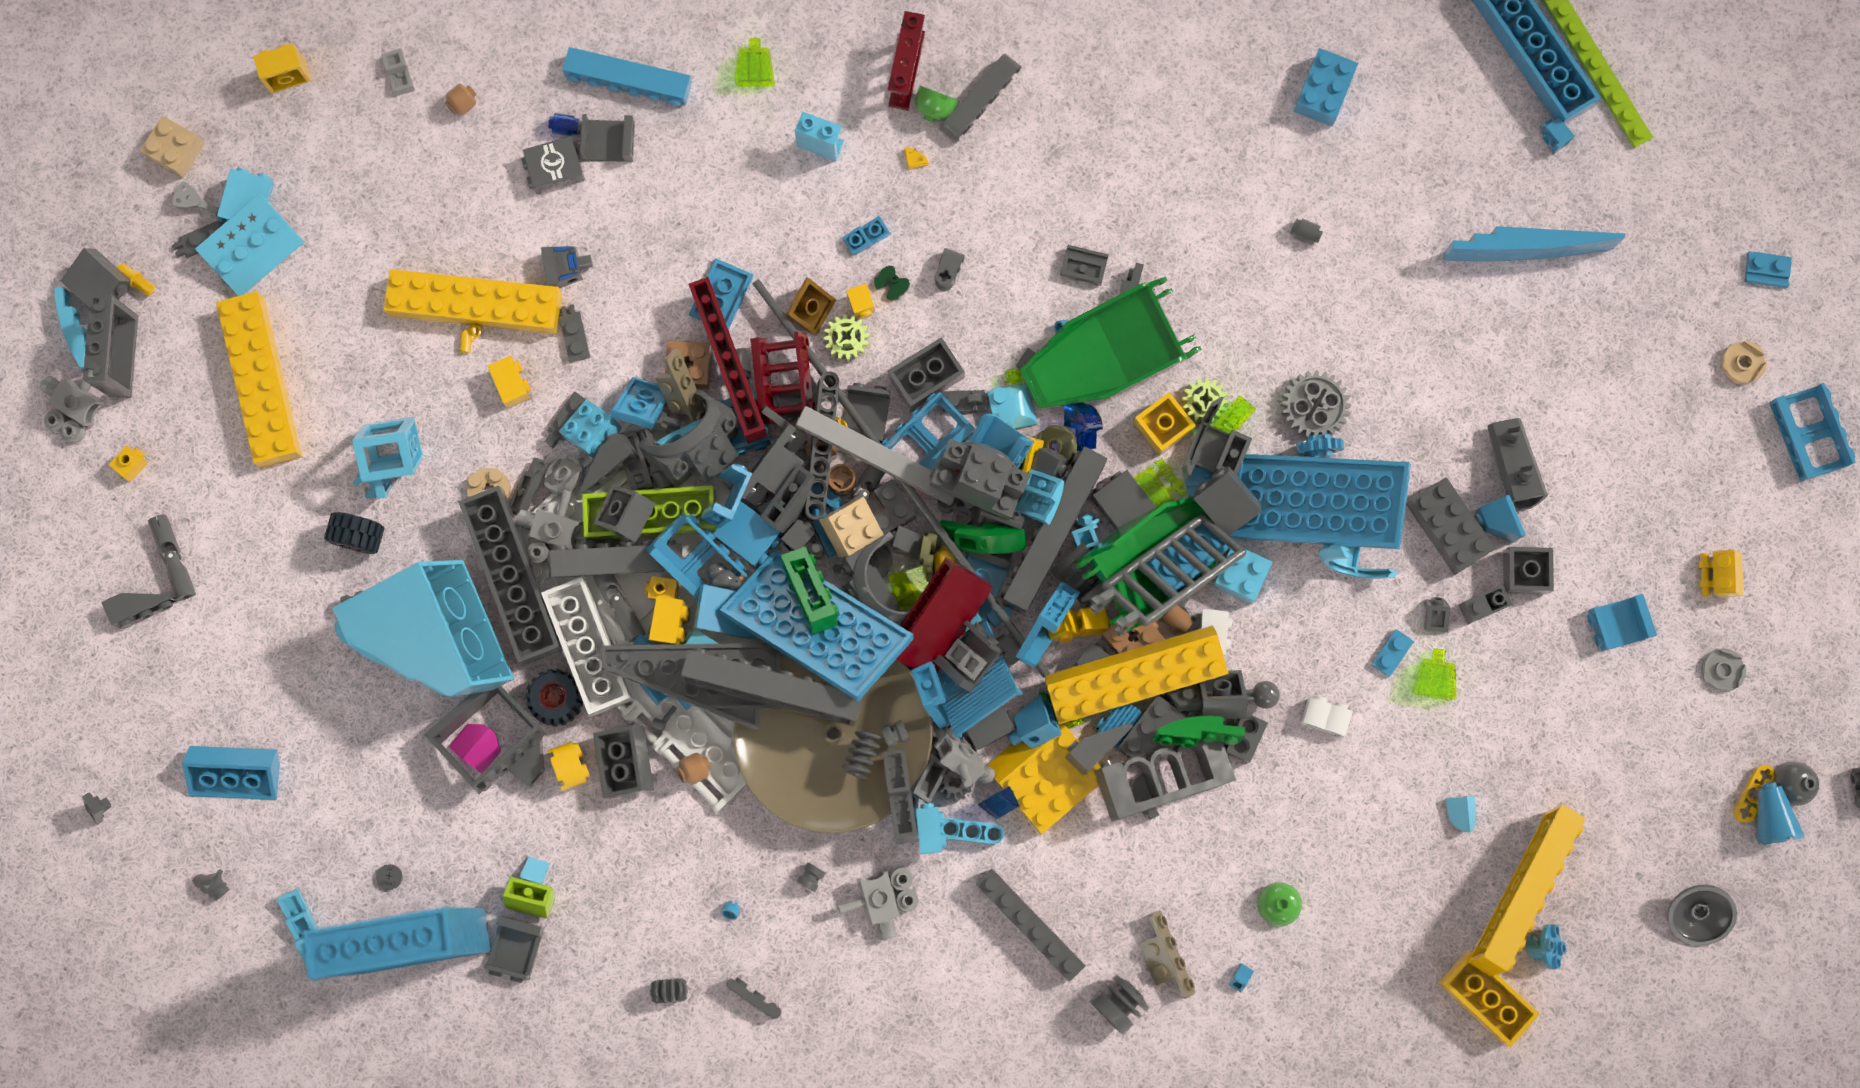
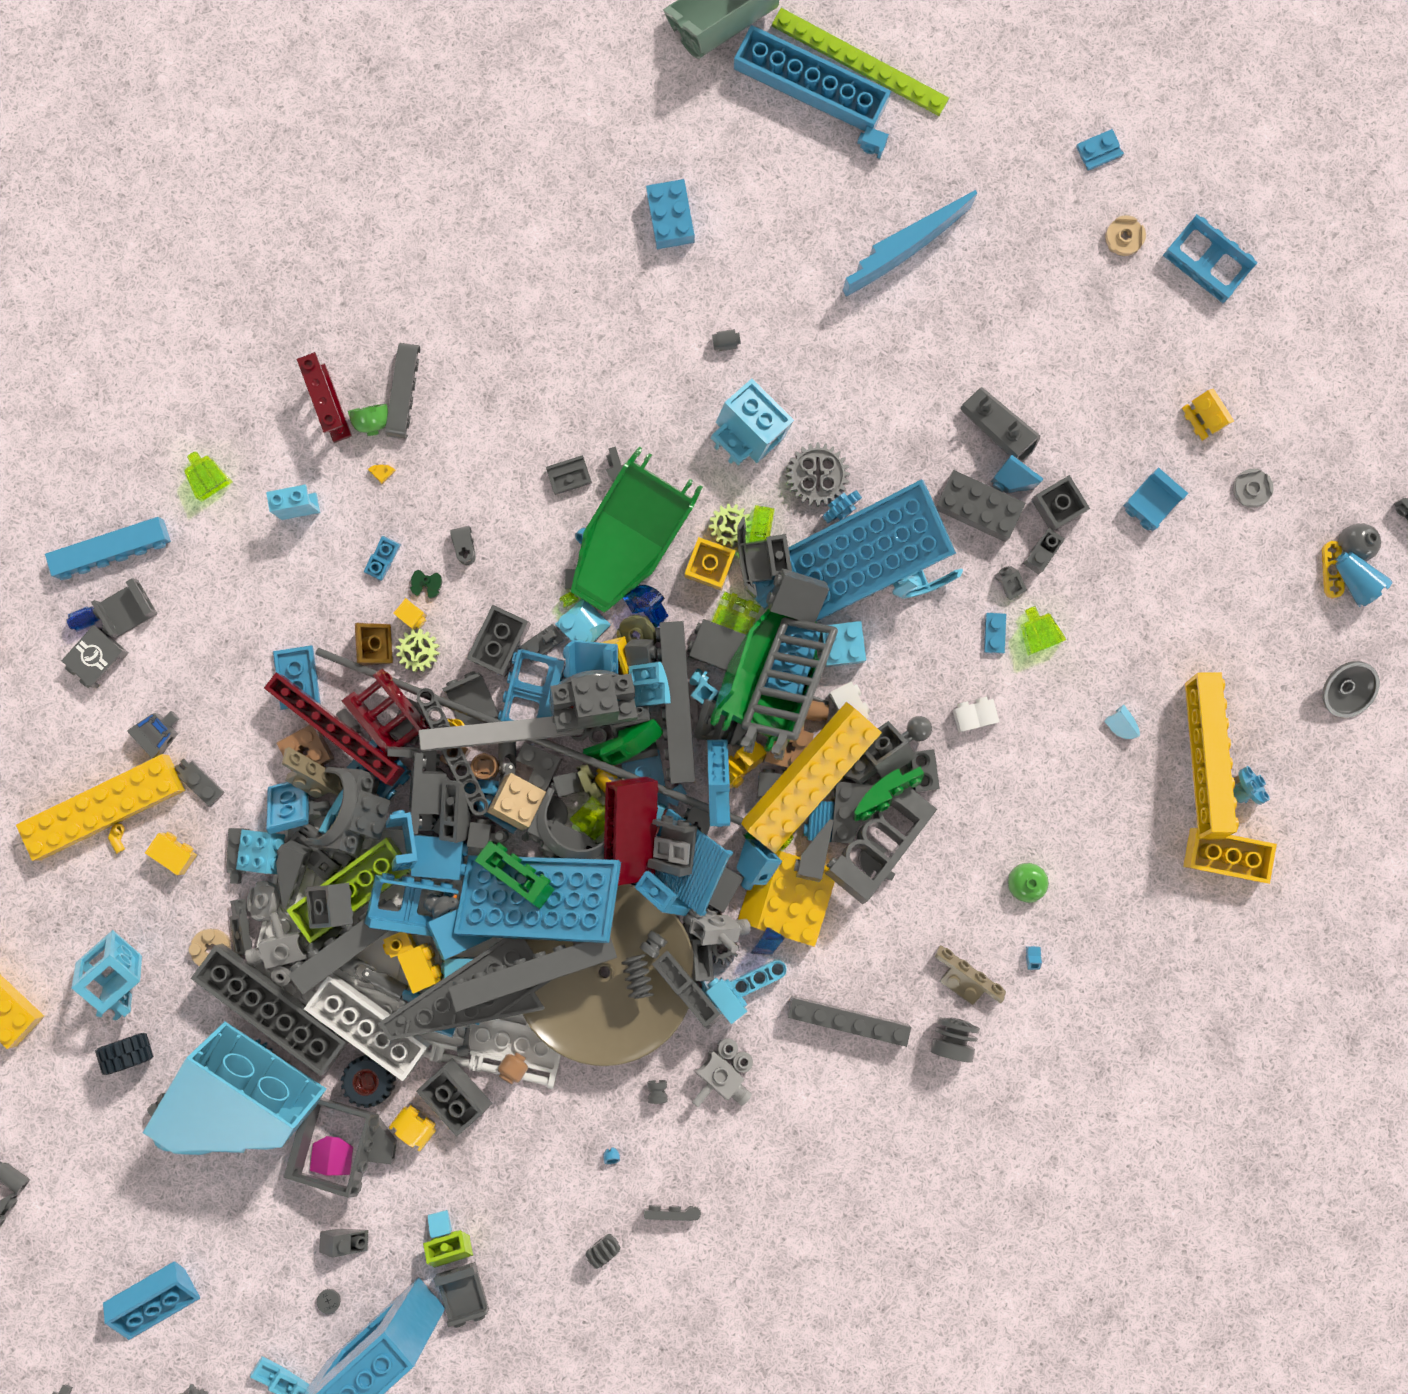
camera: 30 degrees left, 5 degrees up
(438, 830) = (343, 1242): none -> dark grey slope
(1281, 318) = (750, 424): none -> medium azure piece

